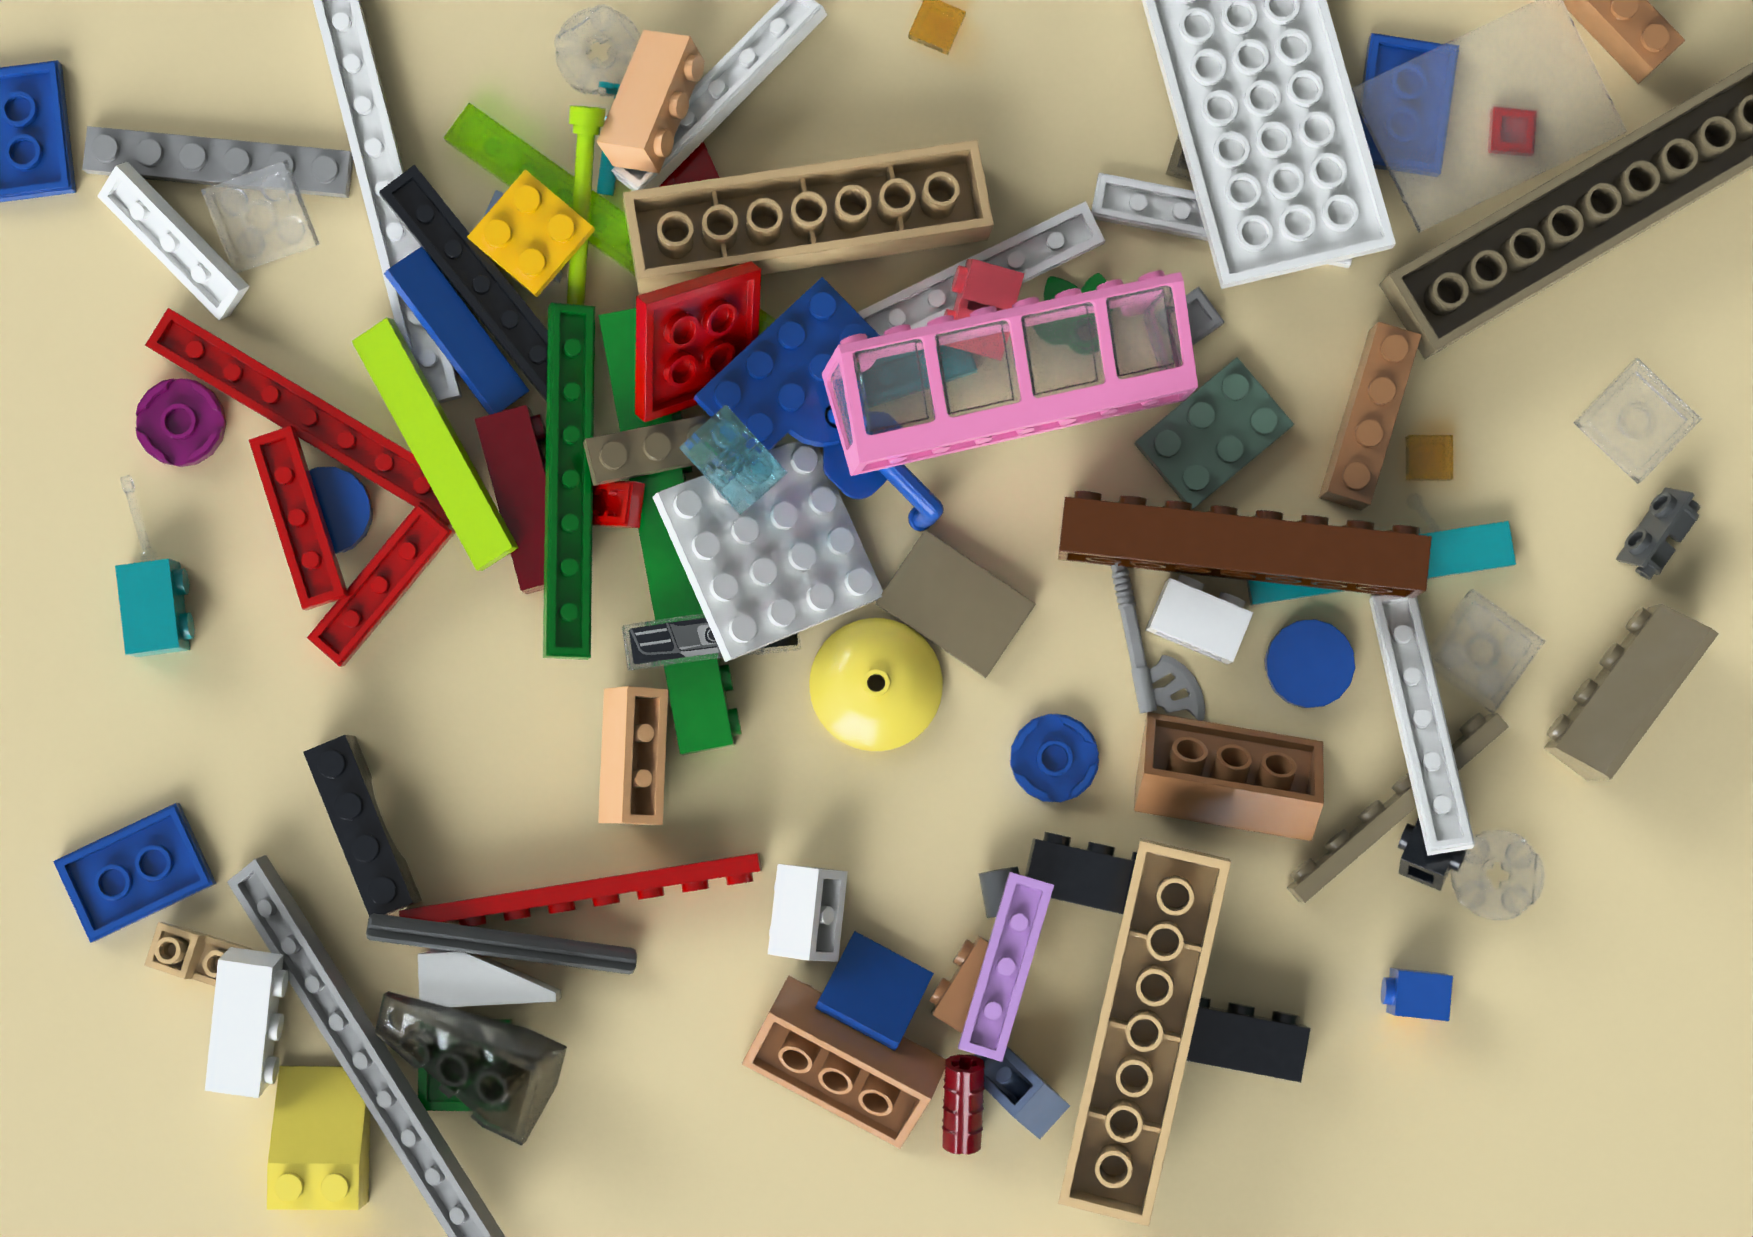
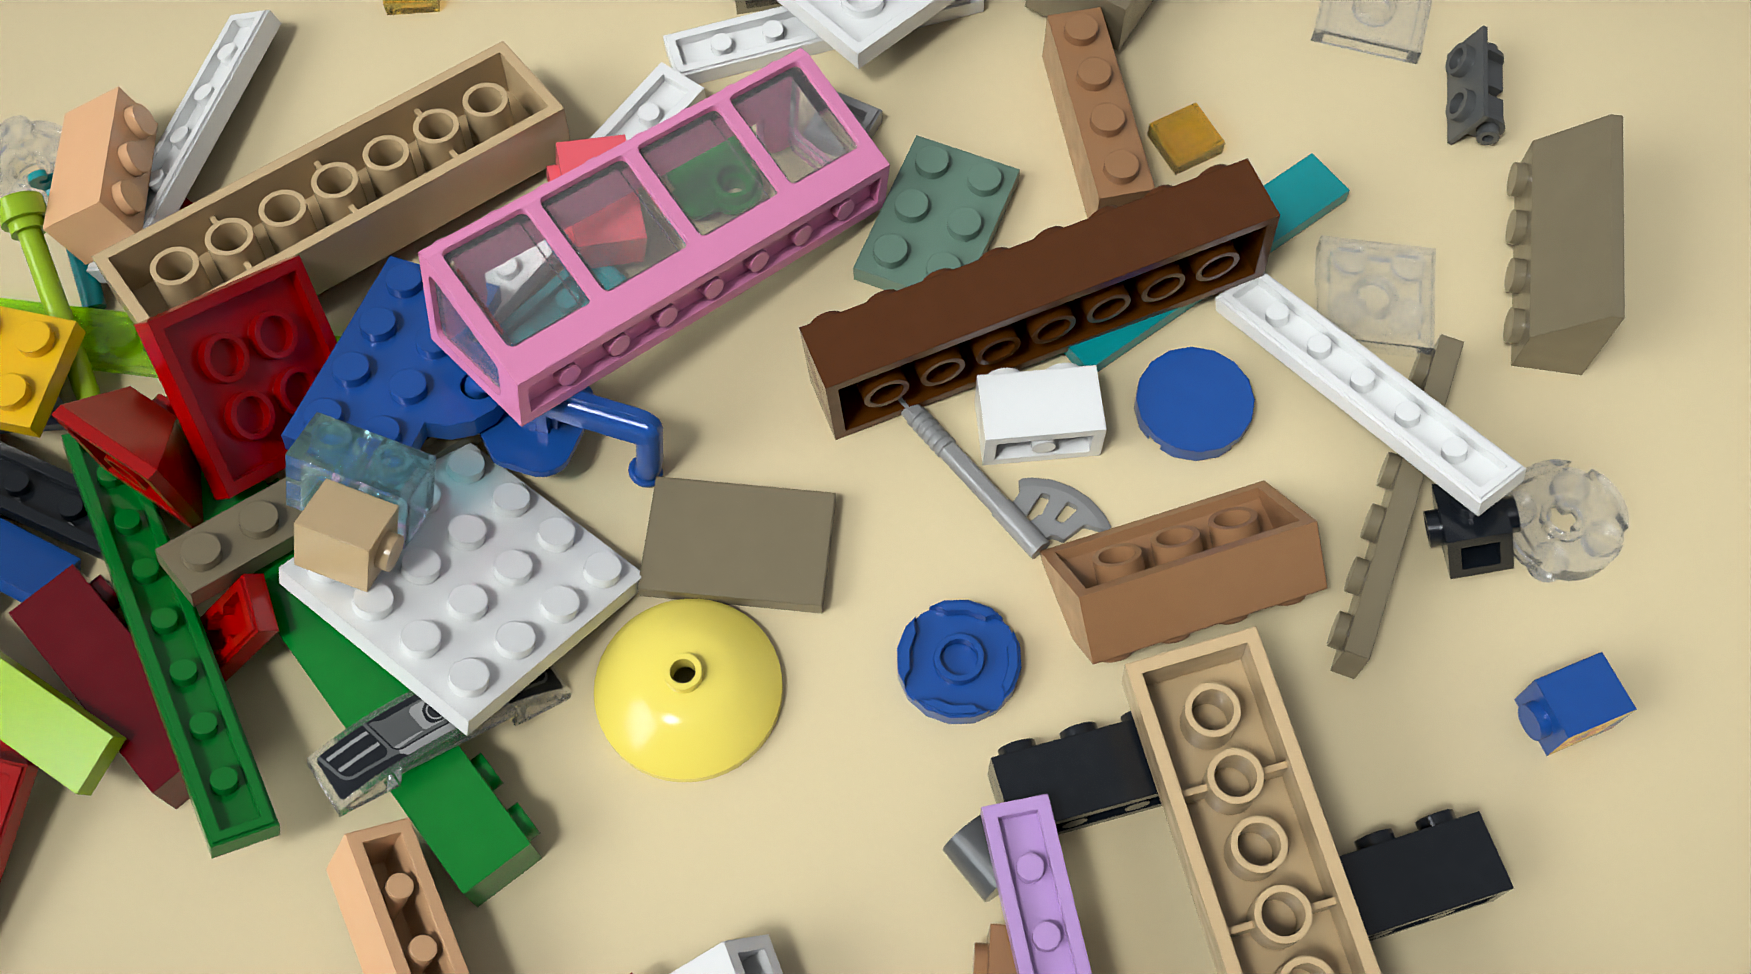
camera: 25 degrees left, 20 degrees down
(605, 355) = (140, 446): none -> red slope
(710, 500) = (347, 535): none -> tan brick

